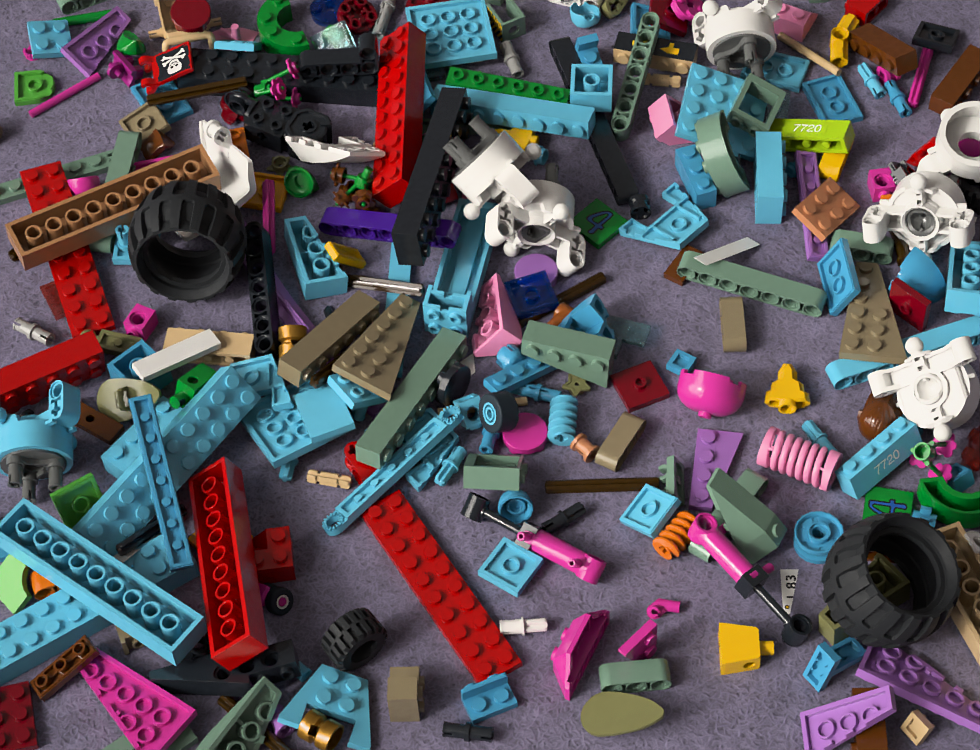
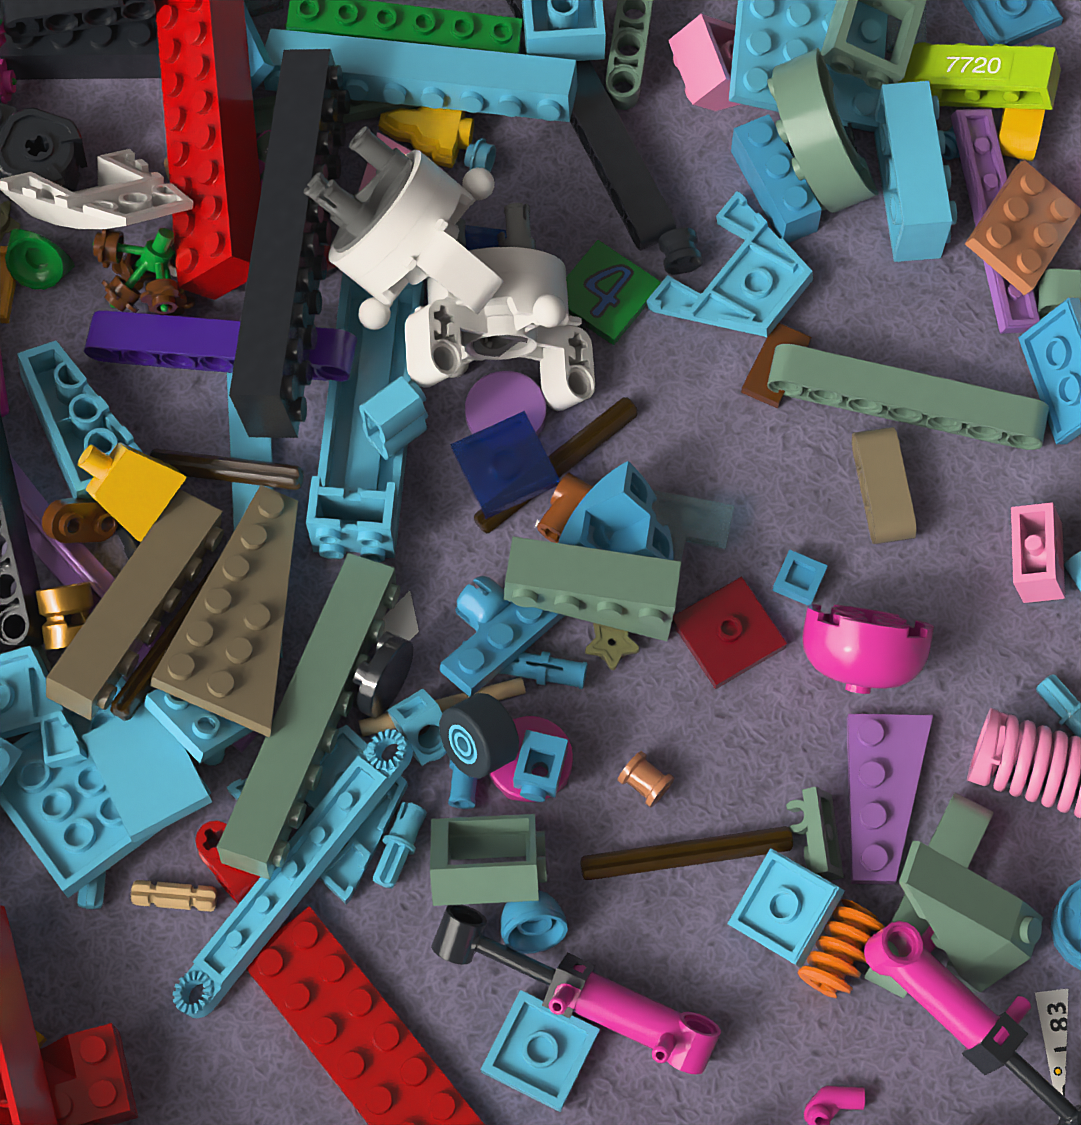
camera: 10 degrees left, 15 degrees up
(307, 301) = (87, 521): none -> reddish brown plate
(334, 283) = (130, 485): none -> yellow torso
(345, 255) = (143, 413): yellow tile -> none
(475, 261) = (394, 416): none -> medium azure brick
(496, 321) = (449, 529): bright pink wedge -> none
(529, 430) = (542, 751): none -> dark azure brick
(562, 420) = (594, 726): medium azure piece -> none
(564, 517) = (626, 934): black axle -> none
(620, 441) = (709, 758): dark tan beam -> none
(726, 251) = (854, 334): white sticker -> none
(787, 392) = (1001, 617): yellow rock -> none
(810, 360) = (1037, 552): none -> bright pink brick

